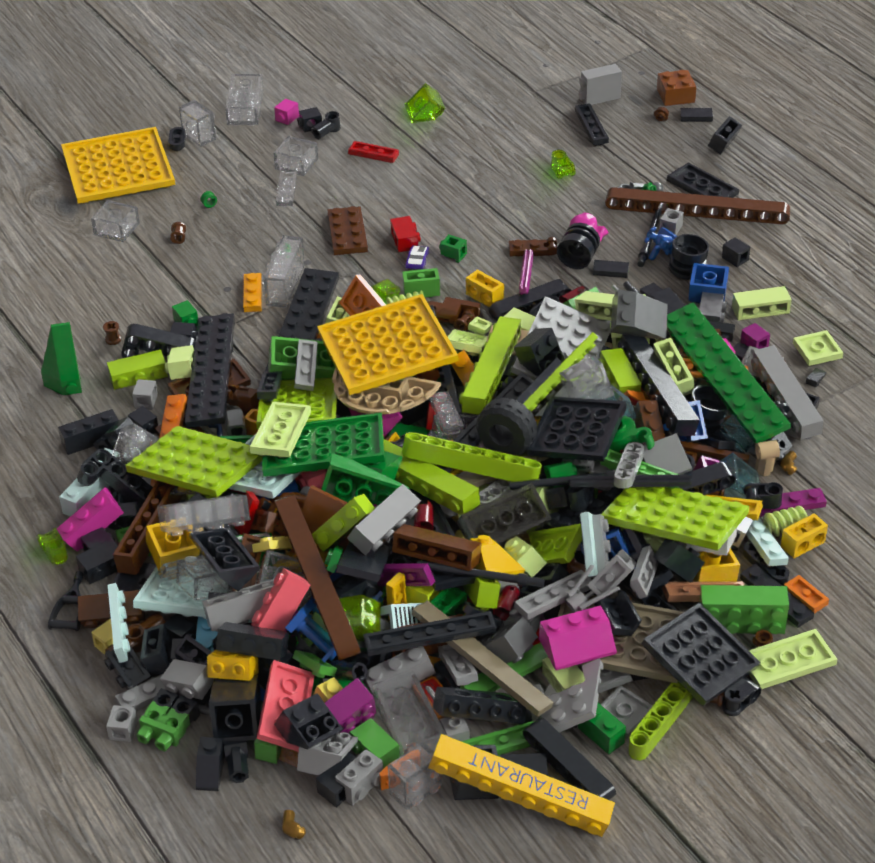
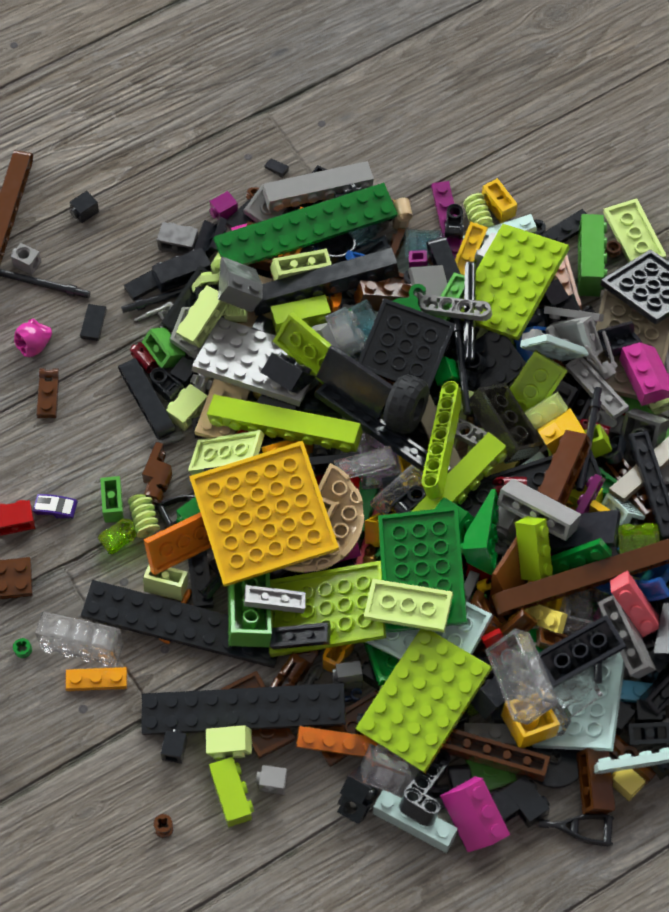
camera: 90 degrees left, 20 degrees up
(53, 546) = (498, 853): clear neon green piece -> none
(60, 363) = (243, 864): green wedge -> none
(86, 431) = (334, 831): black brick -> none
(144, 419) = (319, 777): black brick -> none
(151, 339) = (193, 773): black beam -> none
(185, 313) = (139, 746): green brick -> none
(453, 247) = (46, 463): green brick -> none
(464, 320) = (175, 461): reddish brown bush -> none
(480, 326) = (182, 447): yellowish green plate -> none
(484, 288) = (128, 437): yellow brick -> none
(526, 272) = (101, 397): magenta axle -> none
(578, 246) = (68, 343): black wheel -> none
(662, 240) = (64, 264): blue piece -> none
(685, 252) = (97, 245): black wheel -> none
(707, 279) = (139, 234): blue brick -> none
(761, 303) = (168, 195): yellowish green brick -> none
(807, 593) = (561, 210): orange plate -> none
(817, 348) = (239, 158): yellowish green plate -> none

